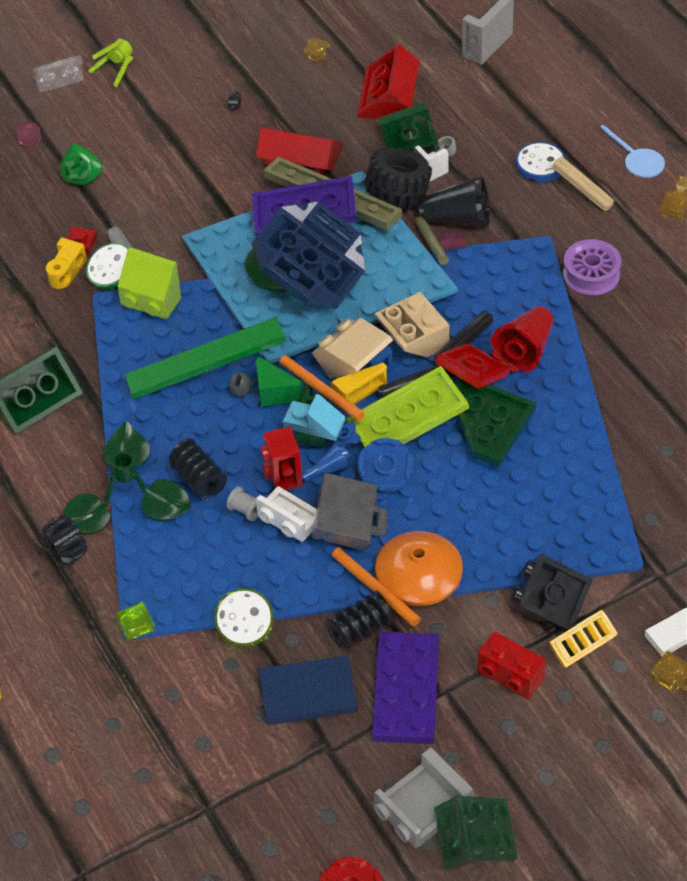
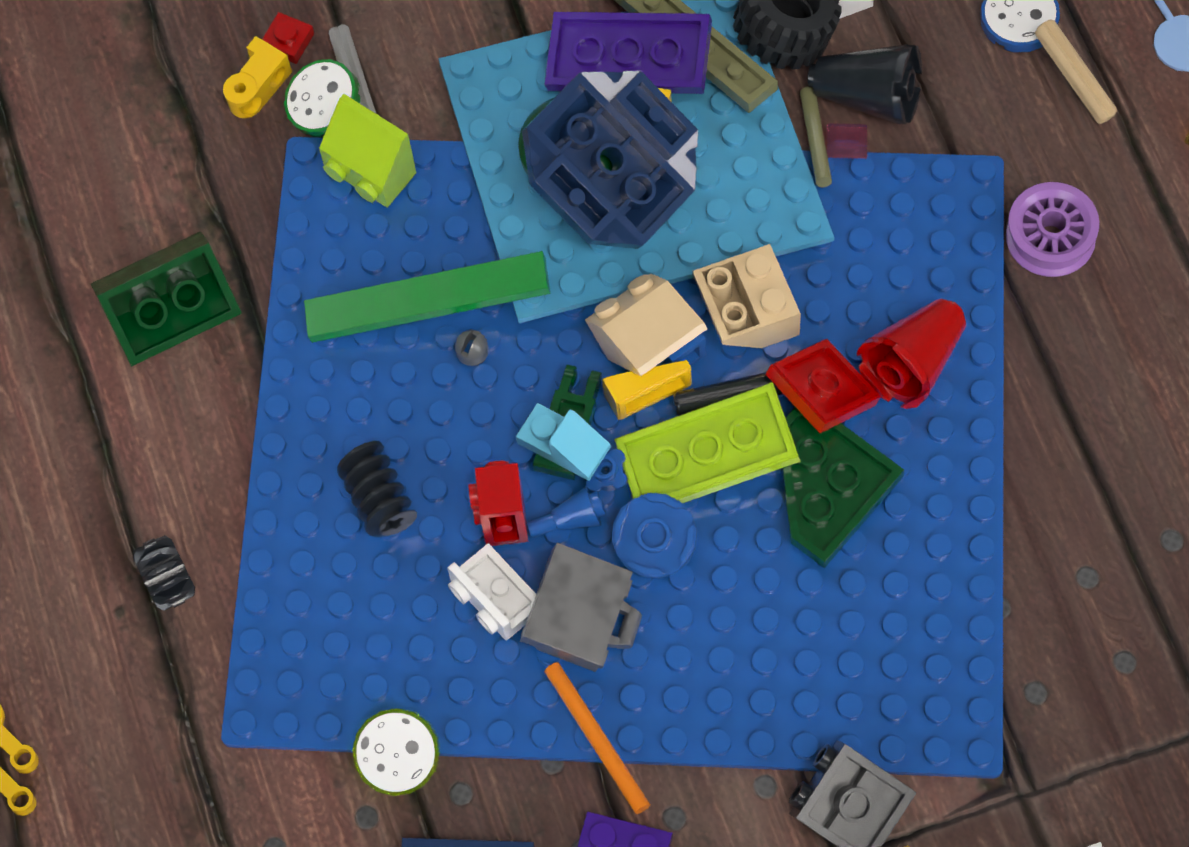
camera: 15 degrees right, 15 degrees up
(124, 453) = (321, 530): dark green plant -> none
(135, 621) = (240, 727): clear neon green tile -> none
(243, 503) = (433, 561): light grey bush -> none
(276, 385) = (519, 363): green slope -> none
(322, 388) = (587, 385): orange bar -> none
(359, 619) = (562, 790): black piece -> none
(421, 579) = (672, 743): orange dish -> none
(469, 332) = (828, 323): black axle -> none

